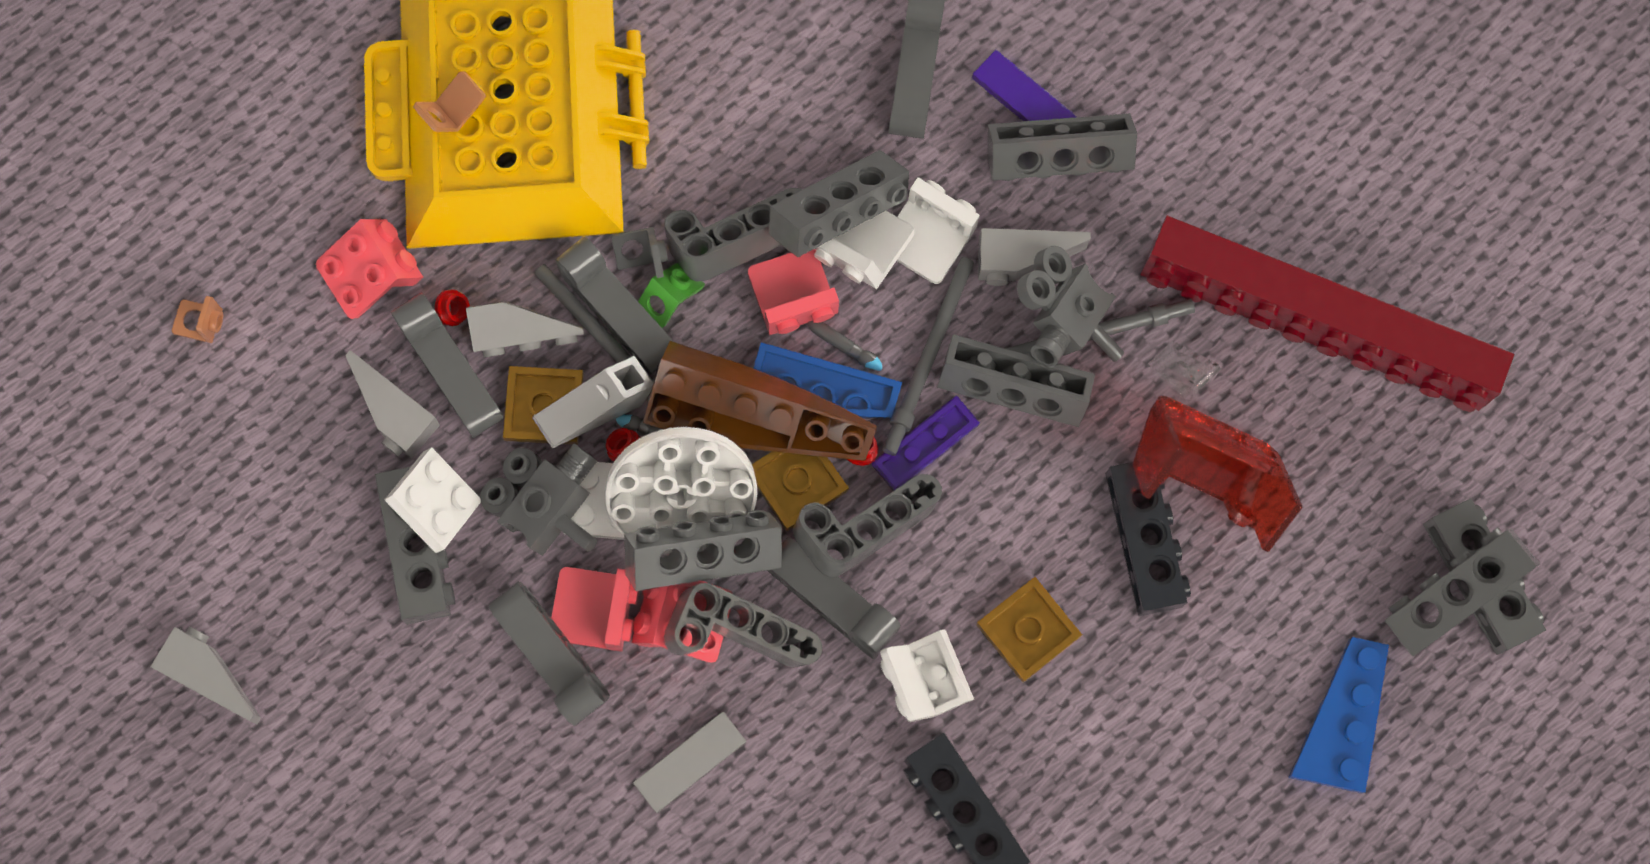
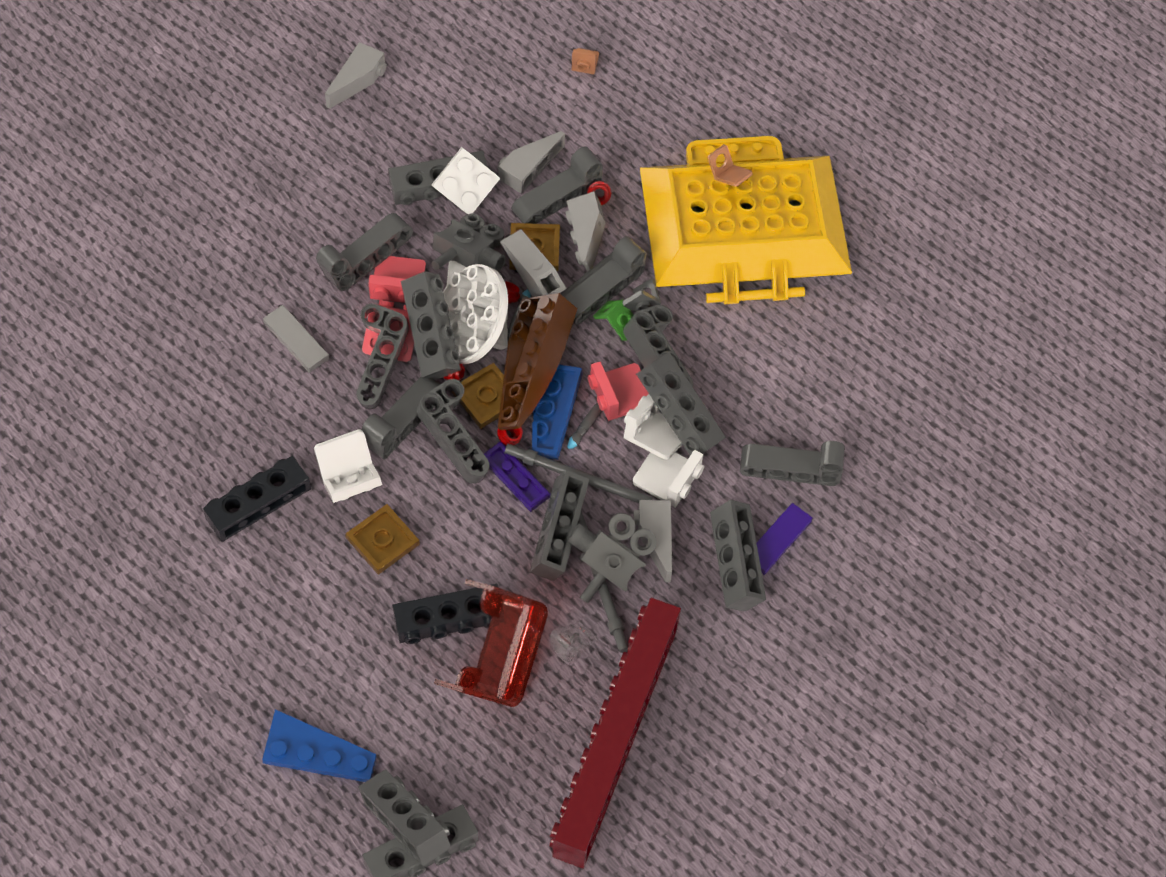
camera: 90 degrees right, 15 degrees down
(367, 265) = (627, 146): coral bracket -> none

